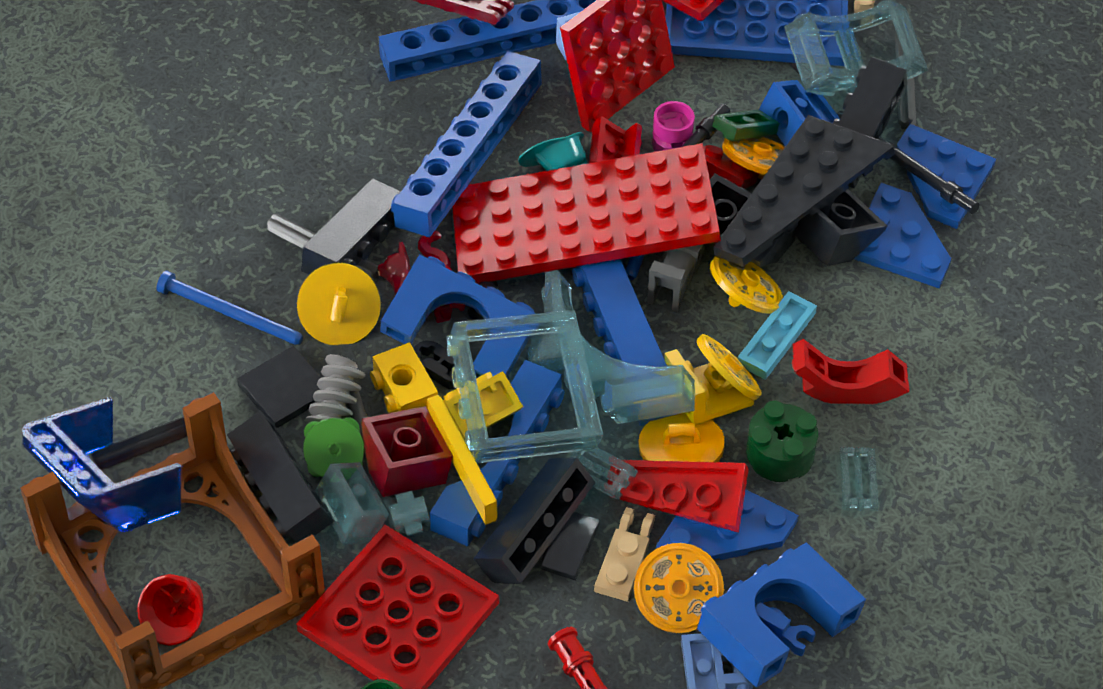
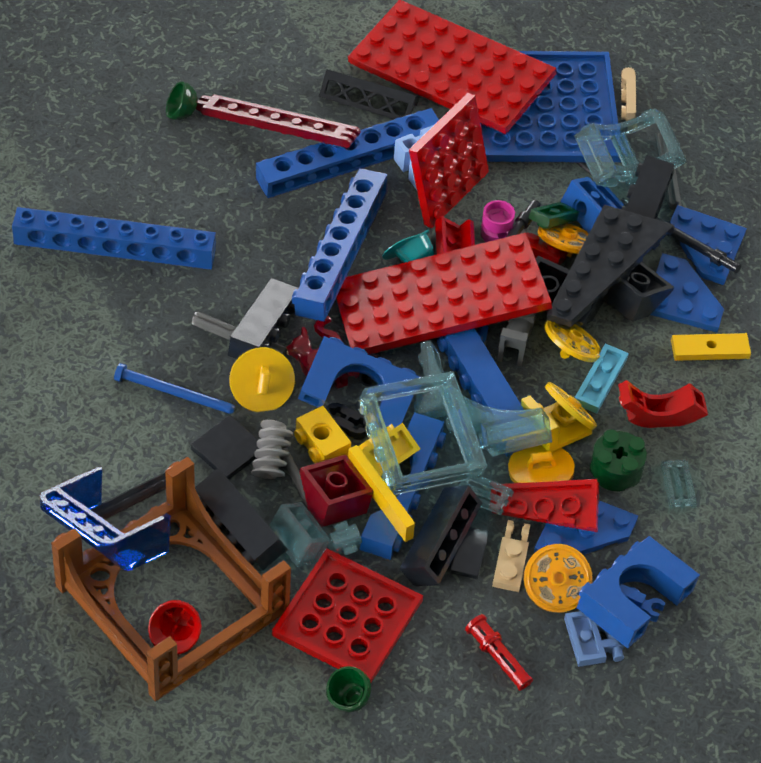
camera: 10 degrees left, 0 degrees up
(188, 116) = (114, 238): none -> blue brick
(331, 443) = (275, 489): bright green piece -> none
(926, 305) = (710, 346): none -> yellow tile

